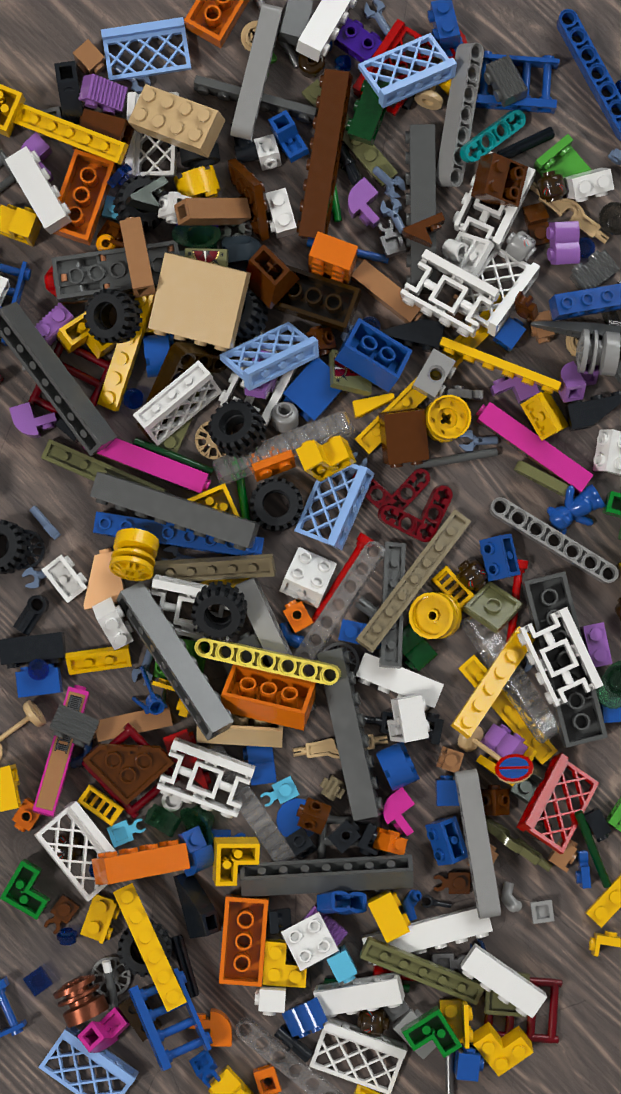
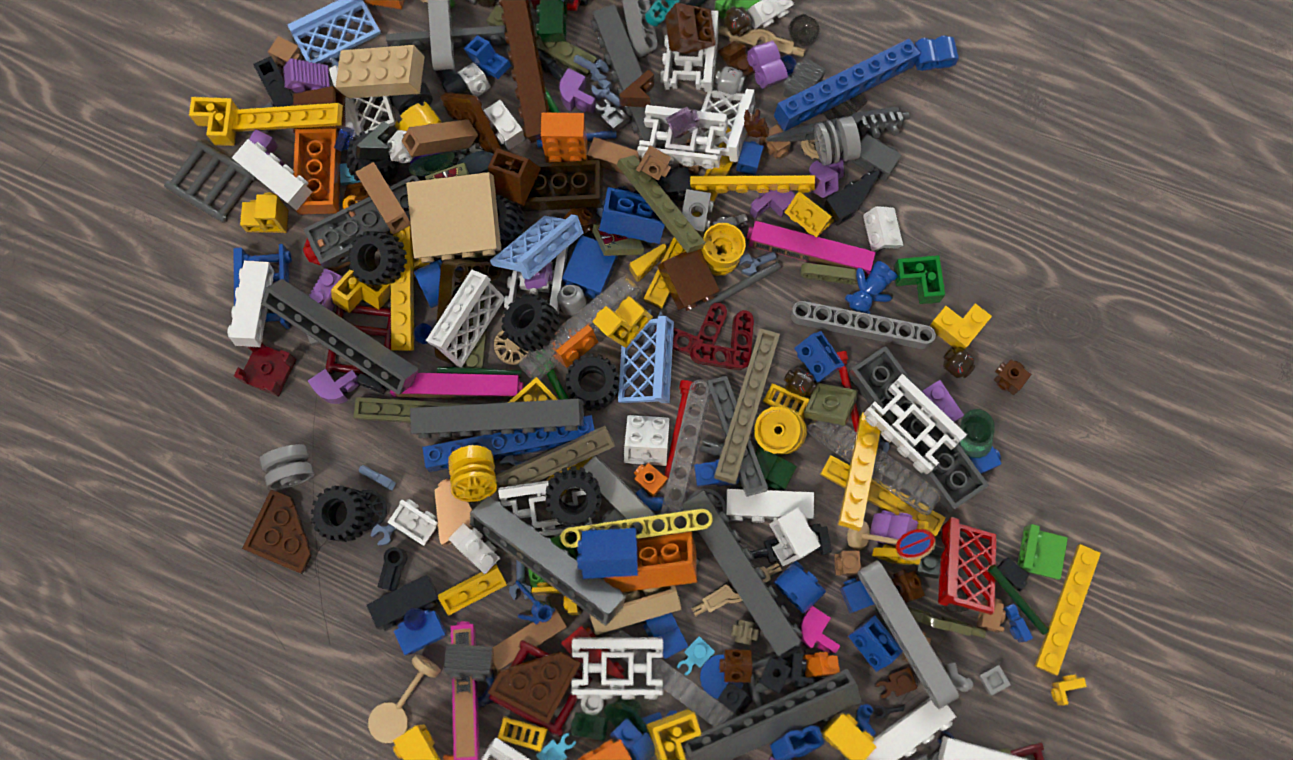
camera: 15 degrees left, 10 degrees down
(232, 676) = (608, 553): none -> blue brick
(403, 355) = (661, 205): none -> olive plate
(411, 313) = (654, 163): none -> medium nougat brick
(453, 283) = (683, 121): none -> clear purple brick
(467, 252) = (685, 95): white plate -> none

